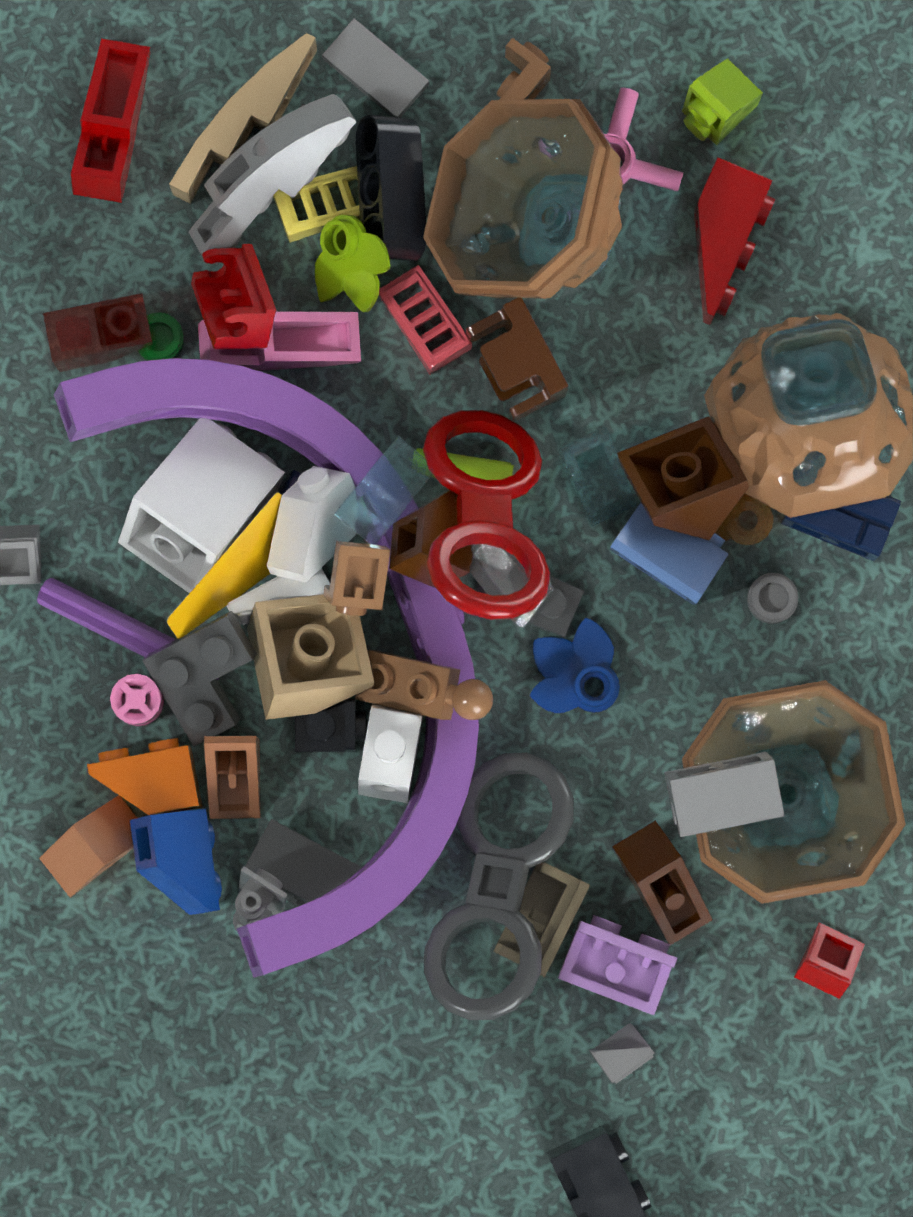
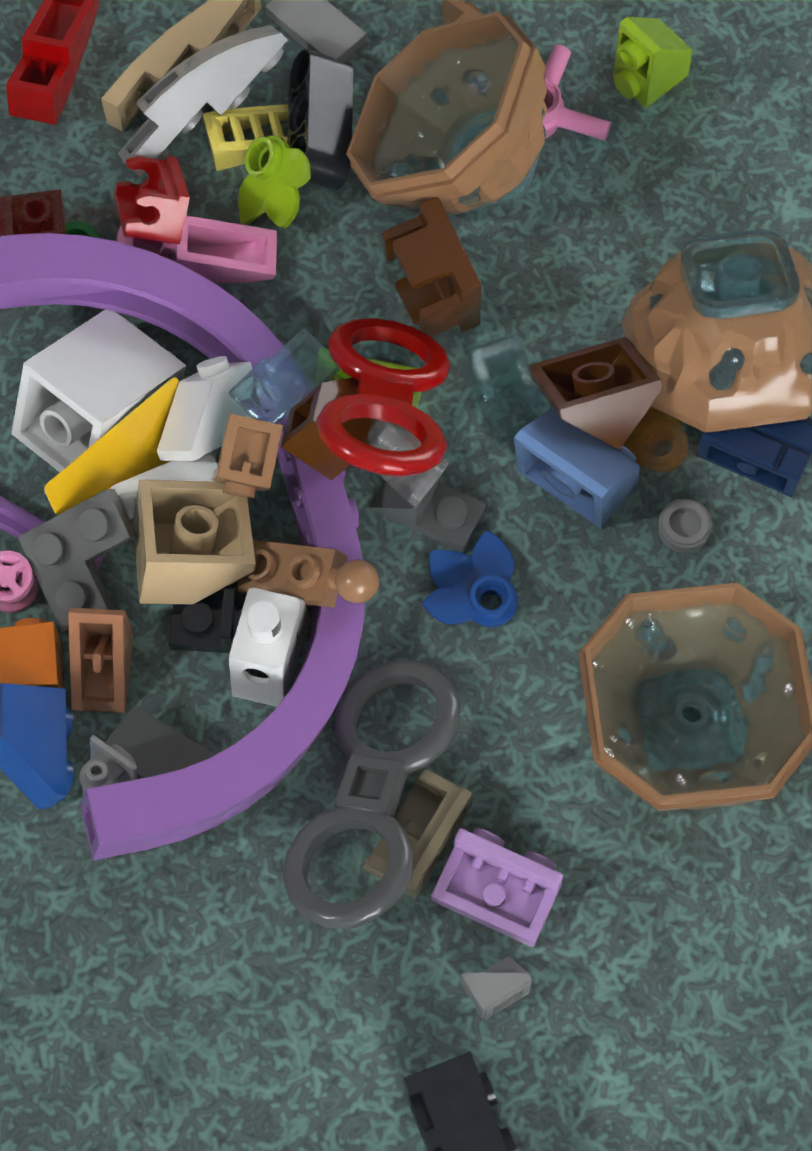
camera: 10 degrees right, 15 degrees down
(444, 353) = (358, 274): coral slope -> none
(662, 882) = (553, 802): reddish brown slope -> none
(723, 223) = (652, 162): red slope -> none
(724, 794) = (622, 679): light grey hinge -> none
(830, 961) = (732, 903): red slope -> none

